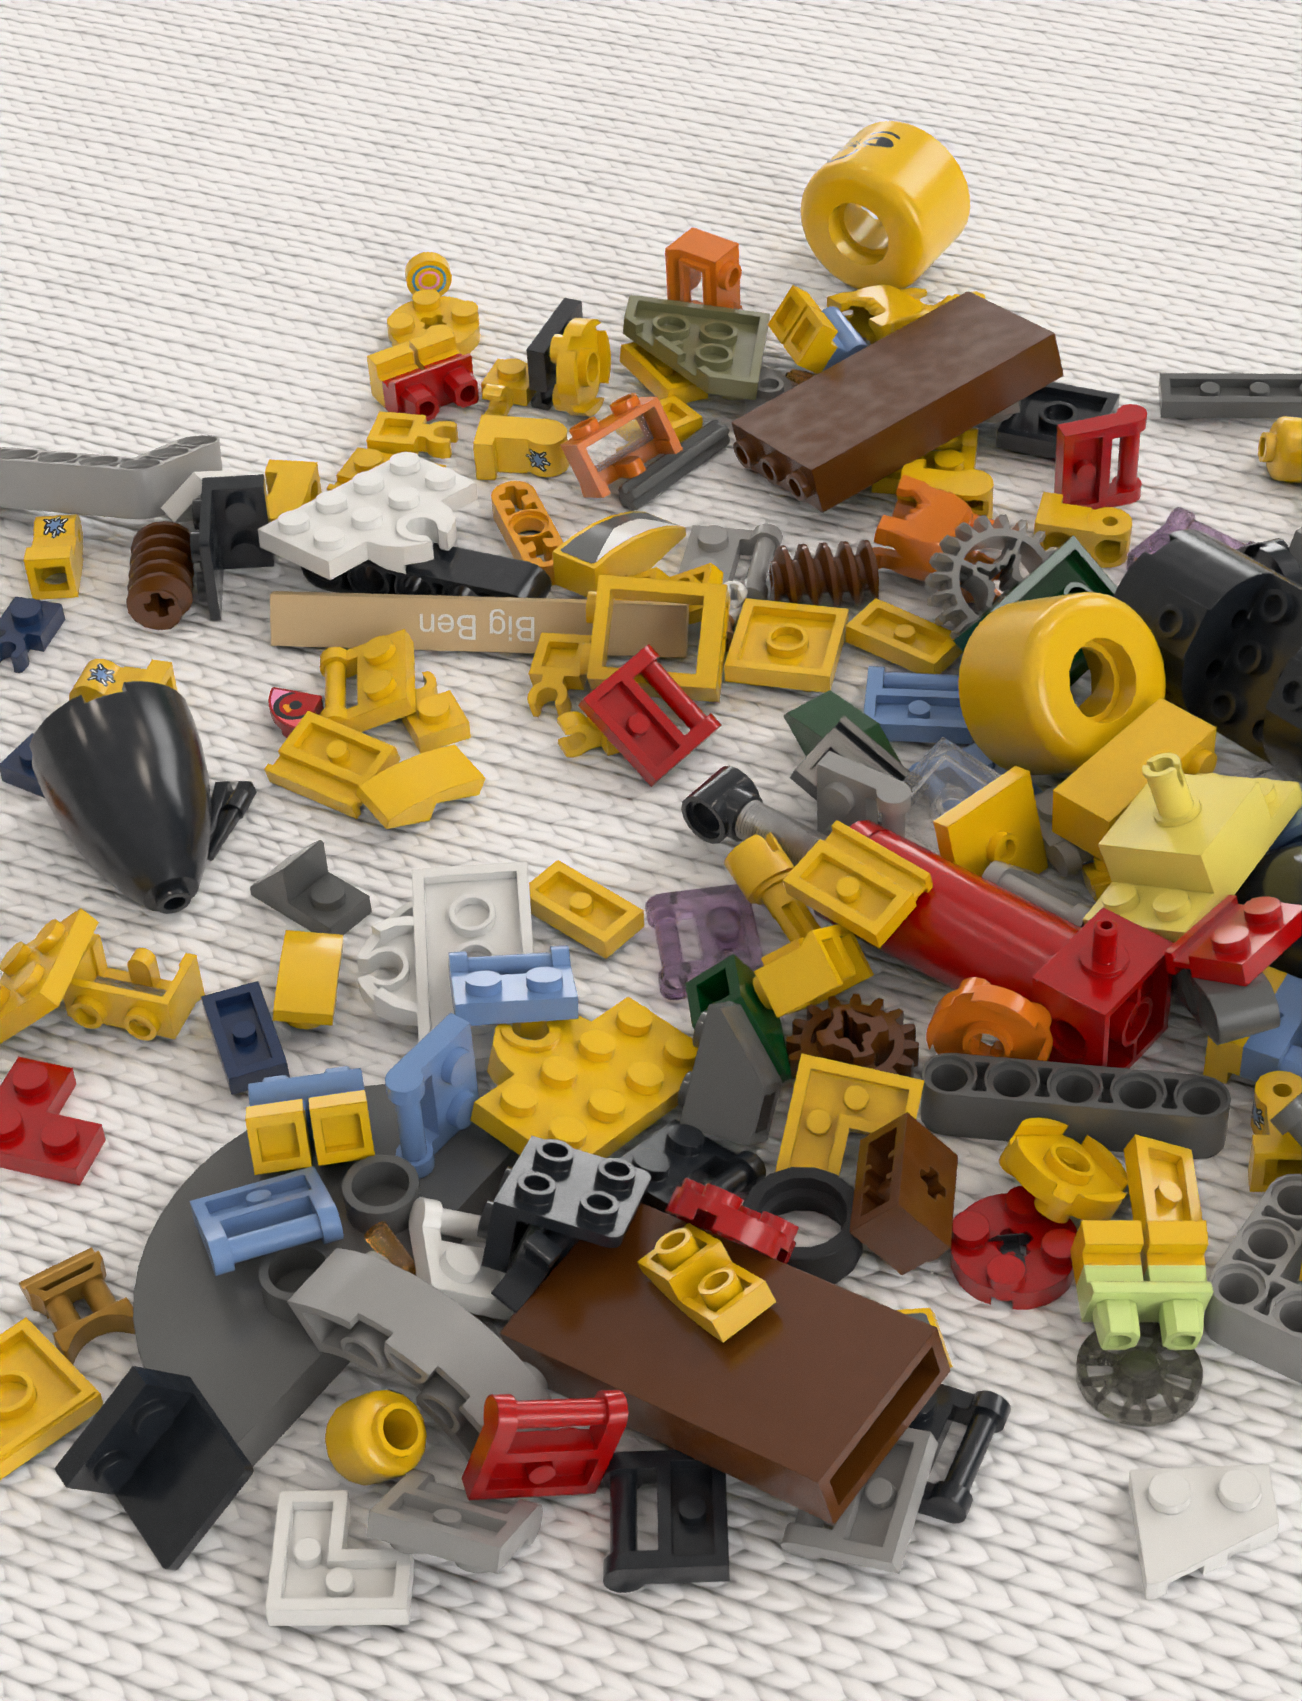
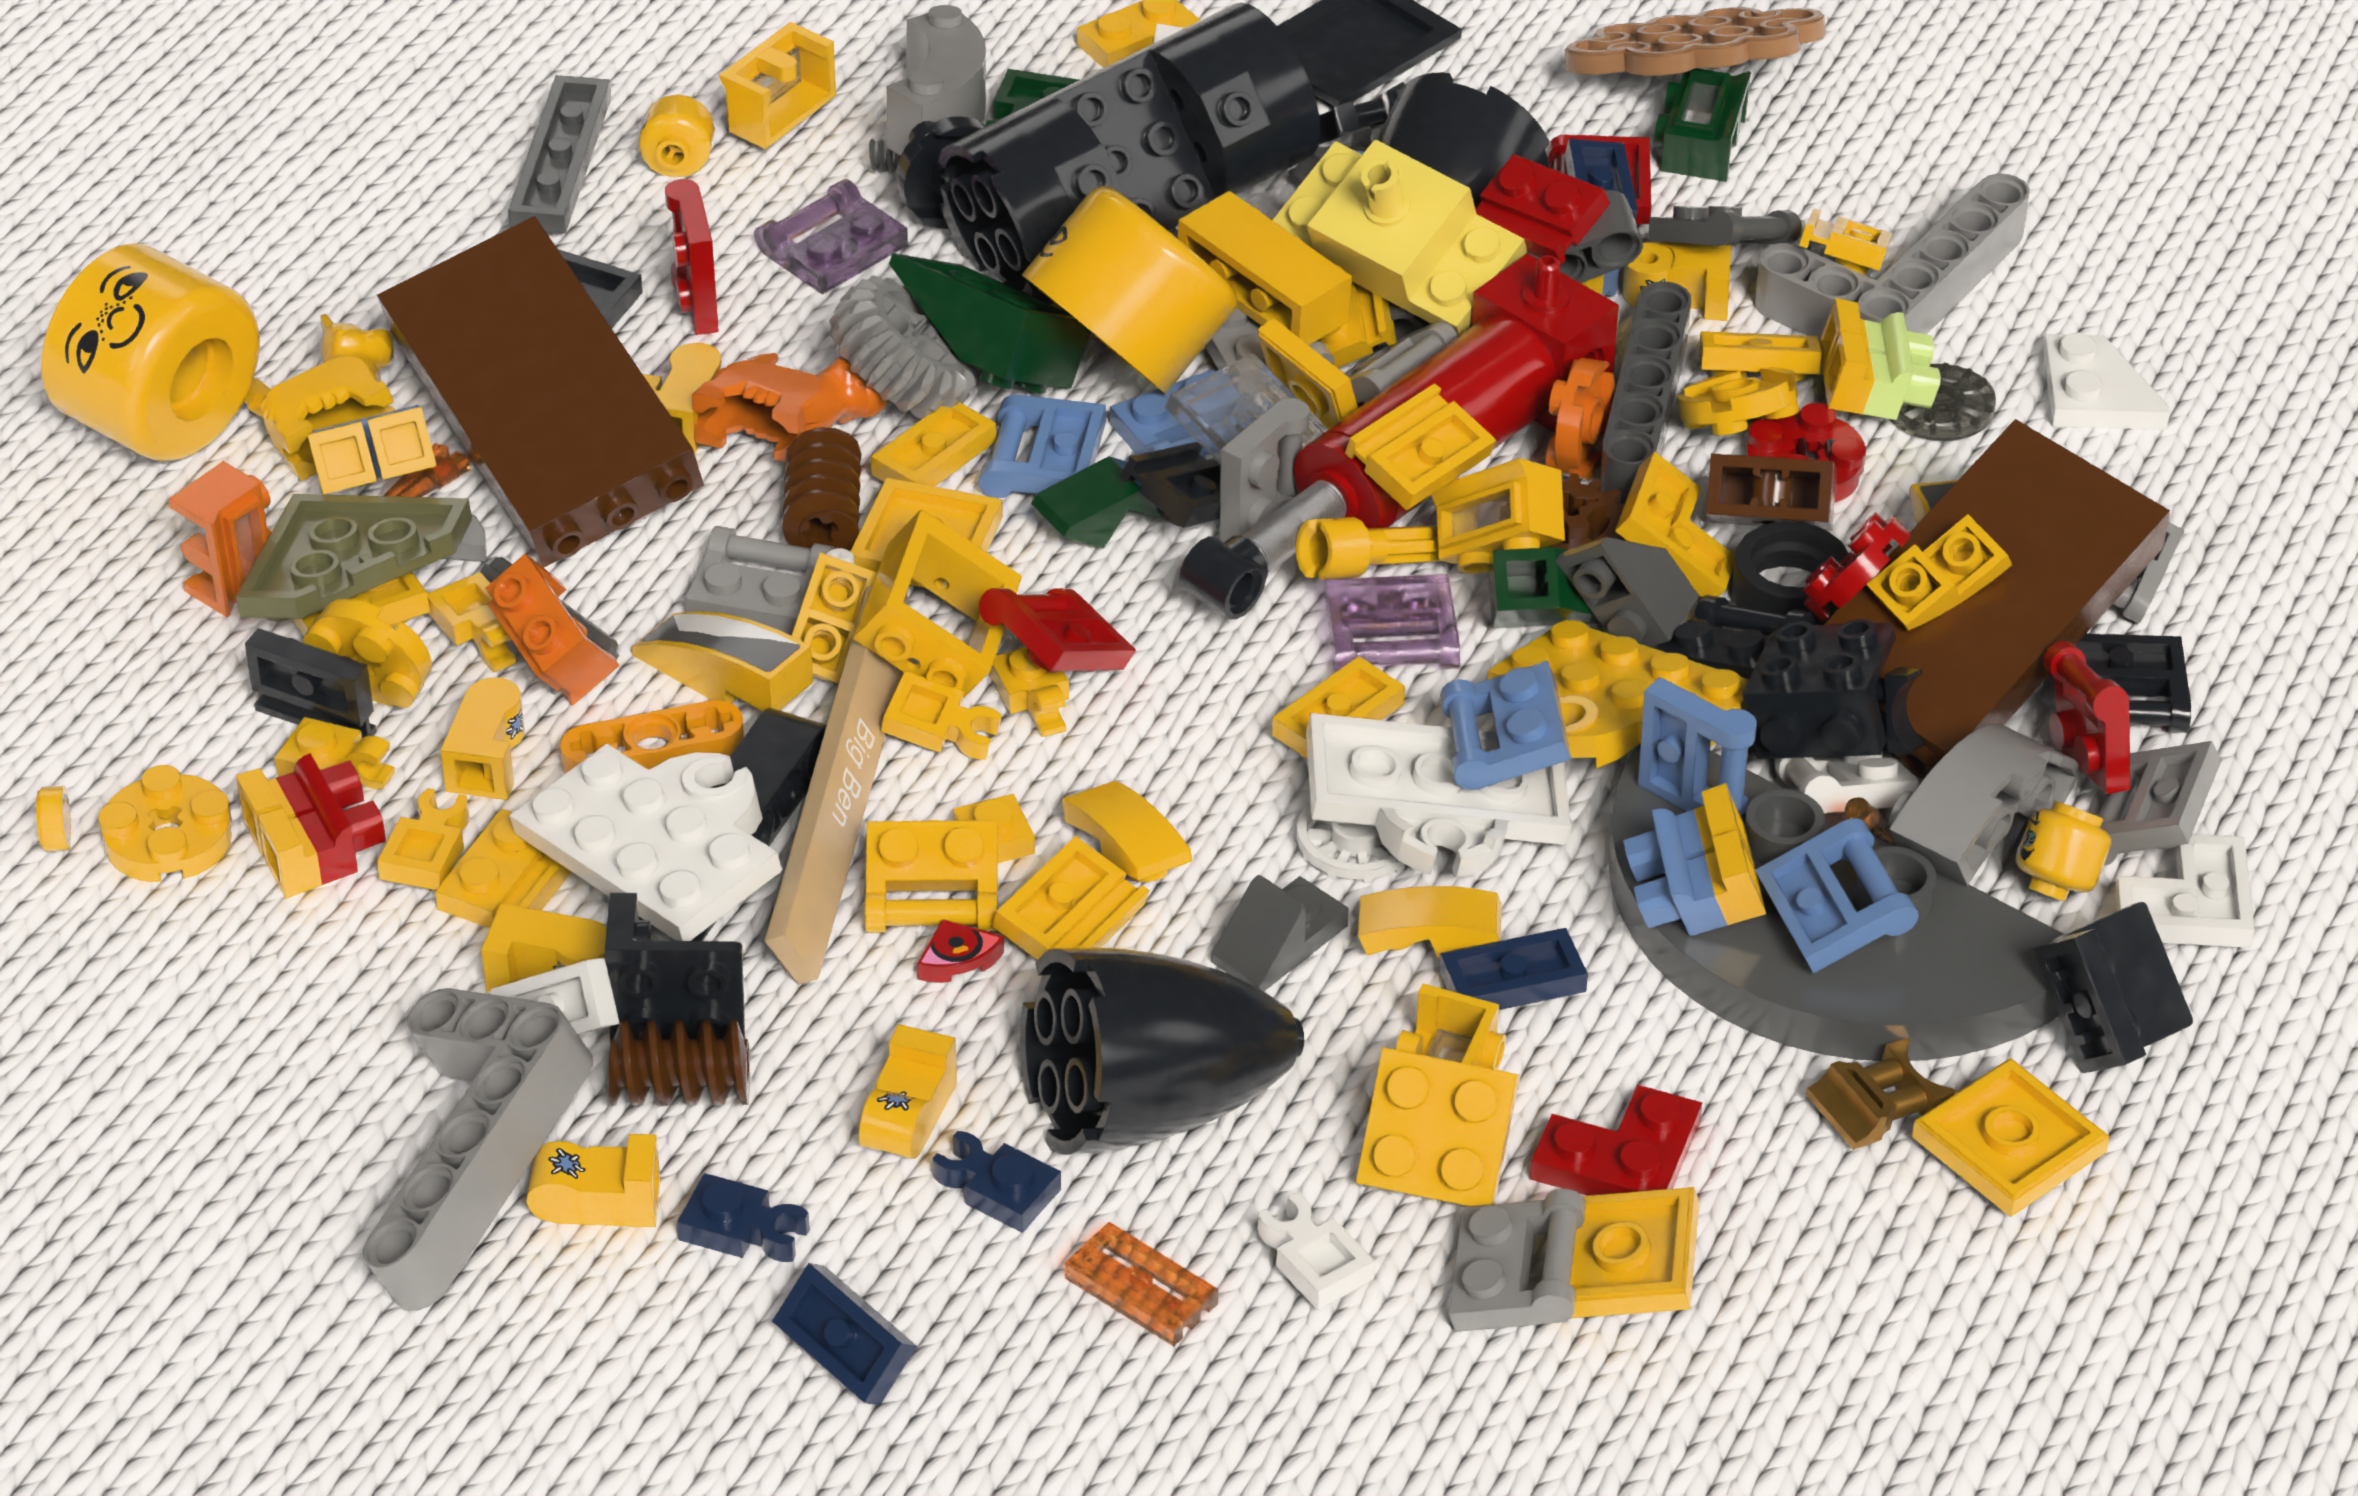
camera: 90 degrees left, 0 degrees up
(1101, 531) = (778, 310): yellow leg -> none

